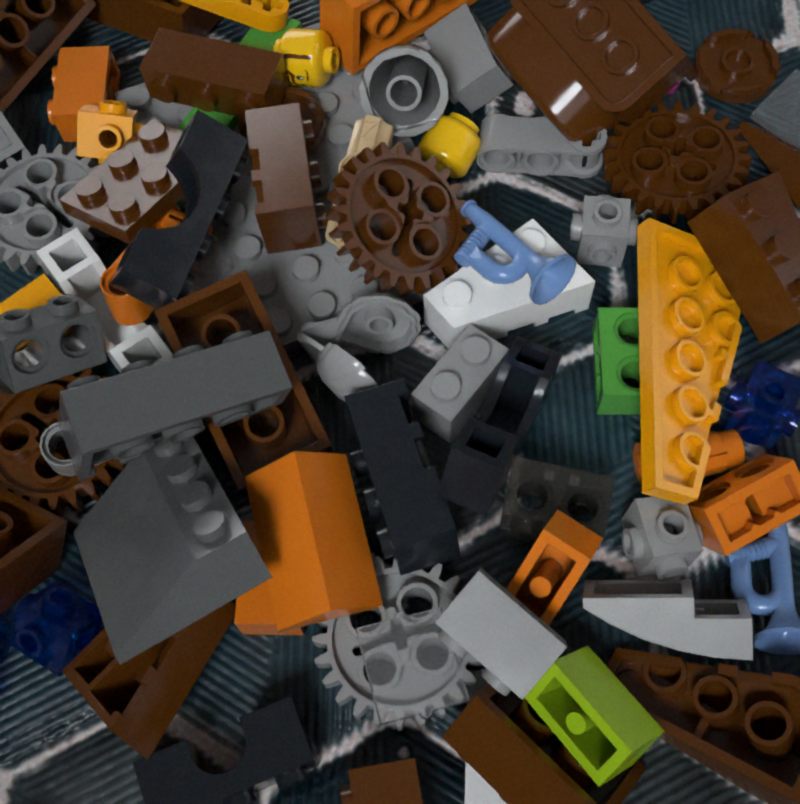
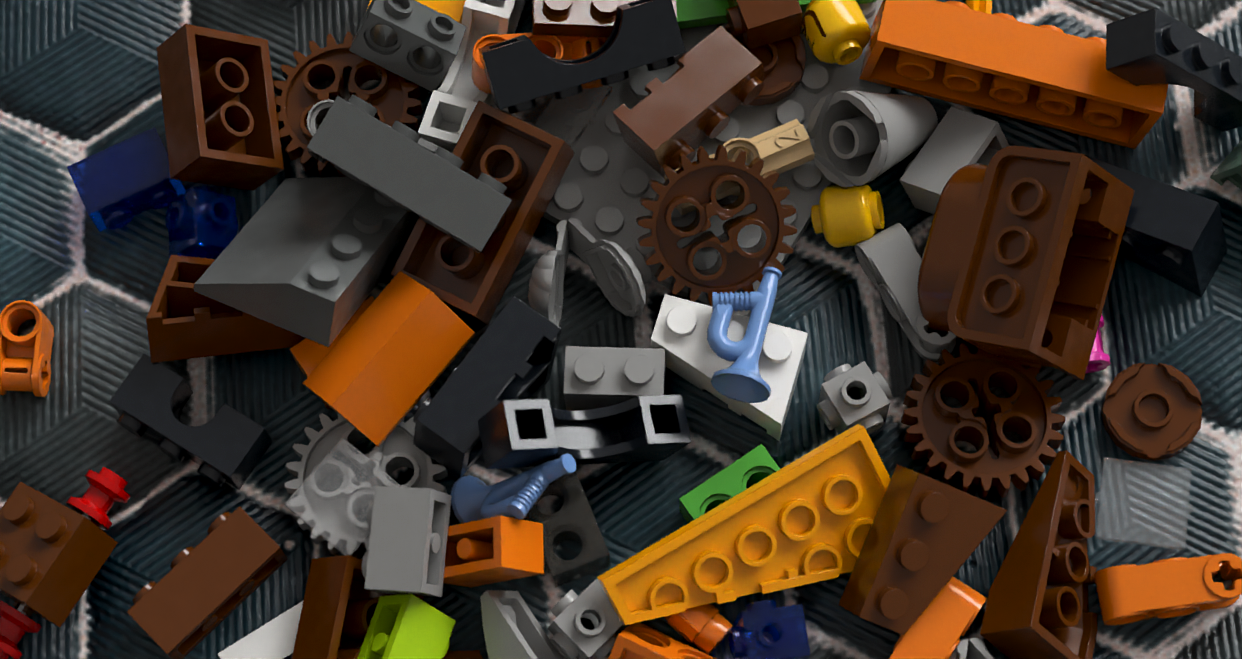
camera: 55 degrees right, 5 degrees up
(500, 540) = (510, 498): none -> medium blue piece

